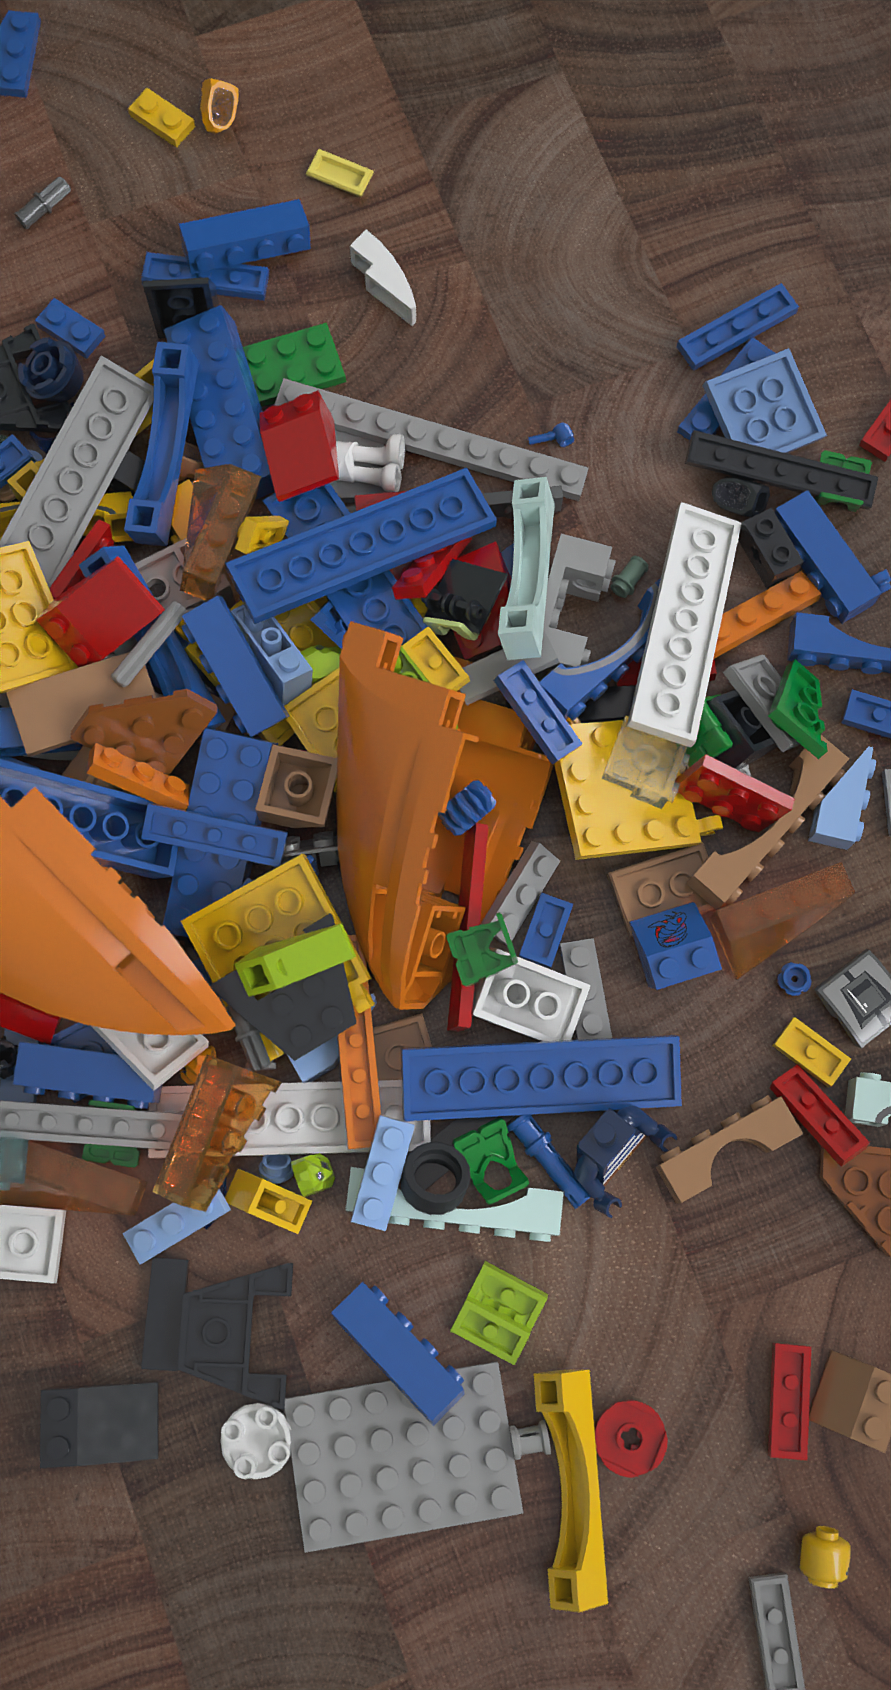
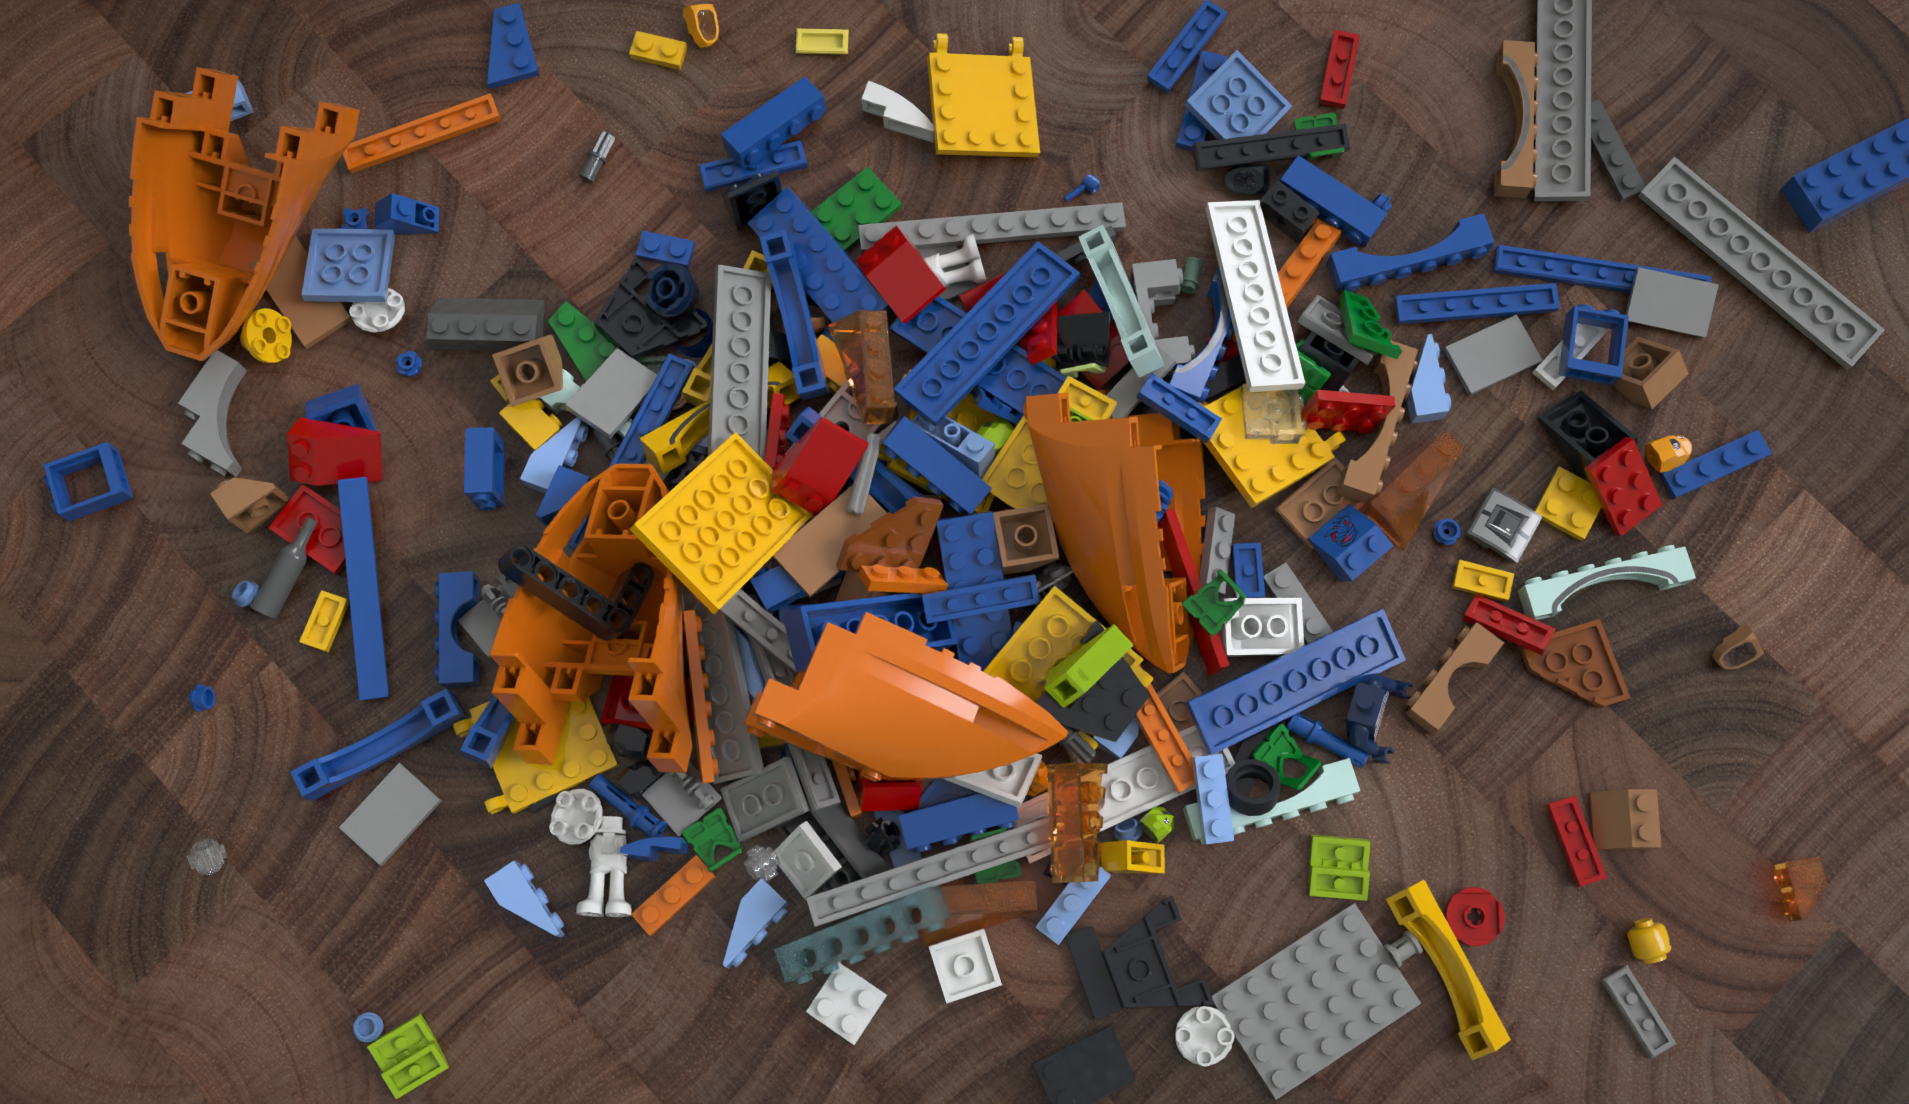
camera: 20 degrees left, 0 degrees up
(260, 532) = (906, 355): yellow plate -> none
(398, 1352) = (1281, 926): blue brick -> none
(482, 301) = (982, 102): none -> yellow plate

